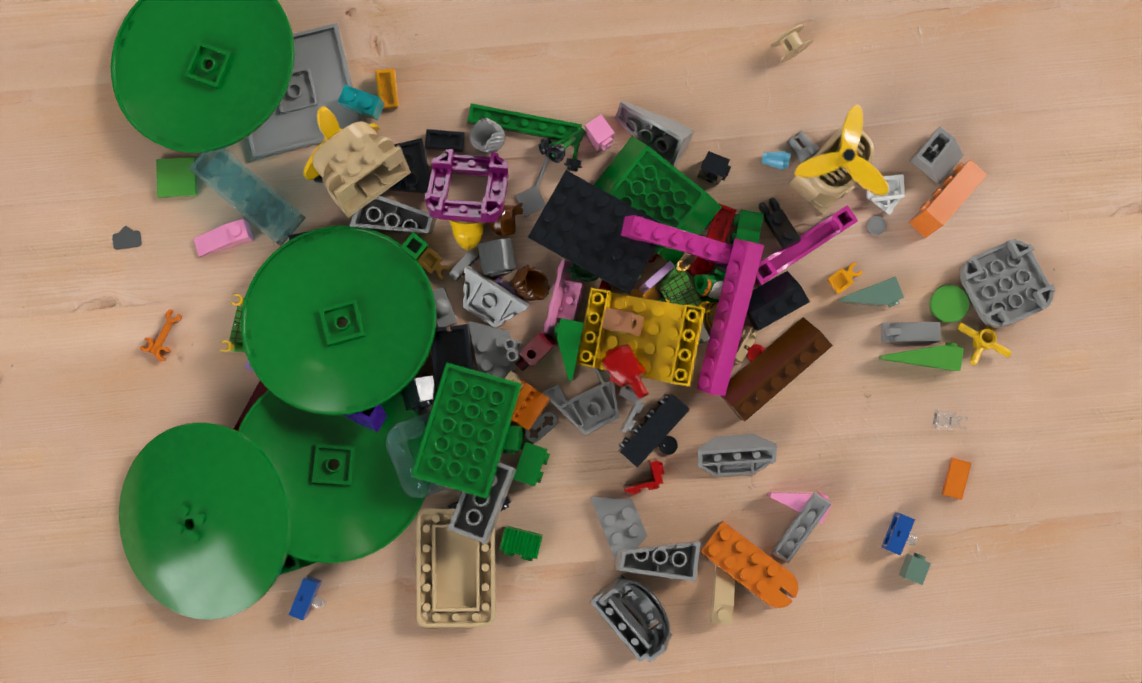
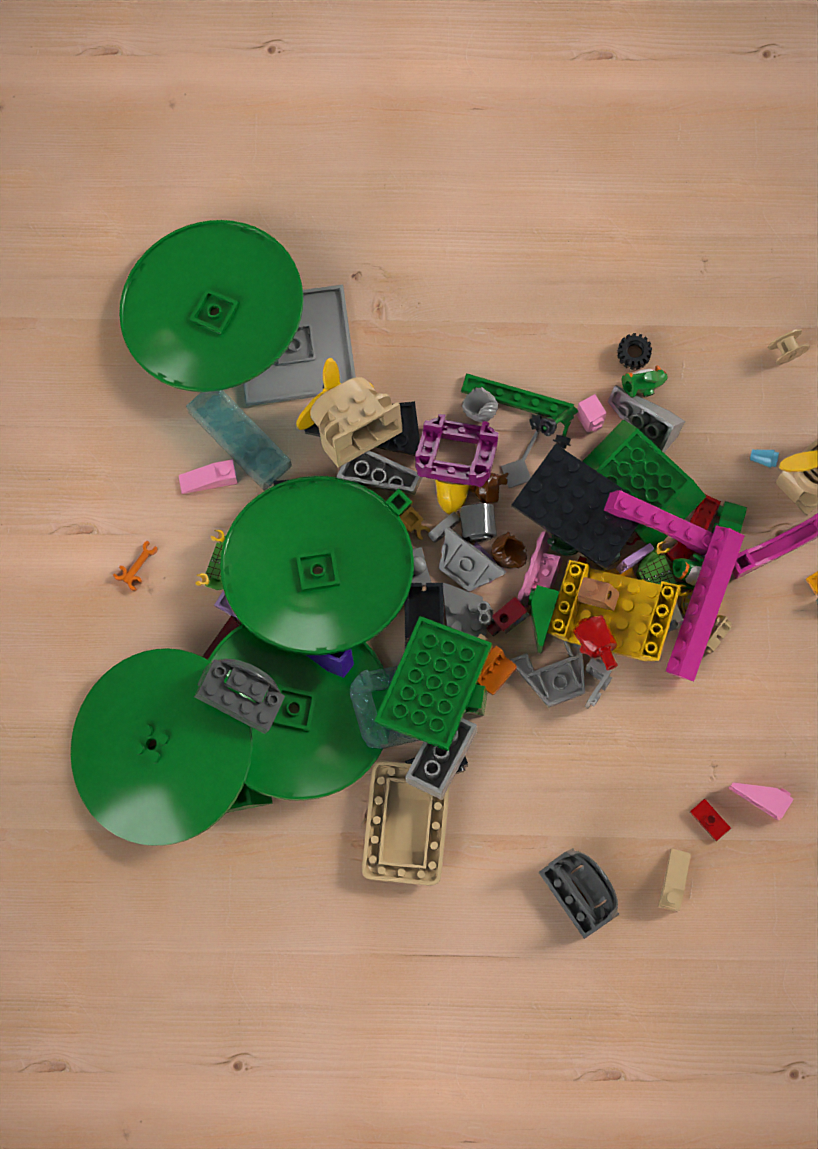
camera: 10 degrees right, 10 degrees down
(127, 239) = (112, 469): dark grey sticker -> none
(175, 178) = (168, 415): bright green tile -> none
(273, 458) = (246, 680): none -> dark grey piece
(307, 598) = (252, 839): blue piece -> none
(361, 102) = (360, 361): teal brick -> none
(387, 87) = (385, 350): light orange plate -> none
(419, 393) = (387, 646): black brick -> none
(444, 140) = (437, 405): black plate -> none
(521, 543) = (474, 807): green brick -> none
(530, 464) = (491, 729): green brick -> none
(543, 431) = (508, 698): dark grey beam -> none
(619, 522) = (576, 801): light grey wing -> none
(637, 52) = (631, 361): none -> black tyre
(649, 94) = (643, 381): none -> green animal
(653, 429) = (619, 706): black brick -> none
(657, 471) = (618, 747): red bracket -> none
(667, 560) = (614, 838): light grey wedge -> none
(668, 445) = (631, 726): black piece -> none
(714, 168) = (702, 458): black brick -> none
(736, 455) = (700, 742): light grey wedge -> none
(750, 566) = (705, 855): orange plate -> none
(752, 529) = (710, 820): none -> red plate
(754, 351) = (728, 645): red tile -> none
(775, 300) = (752, 594): black slope -> none
(775, 368) = (746, 660): reddish brown slope -> none
(779, 224) = (762, 520): black hinge -> none
(801, 527) = (759, 820): light grey tile -> none
(805, 153) = (796, 443): light grey piece -> none

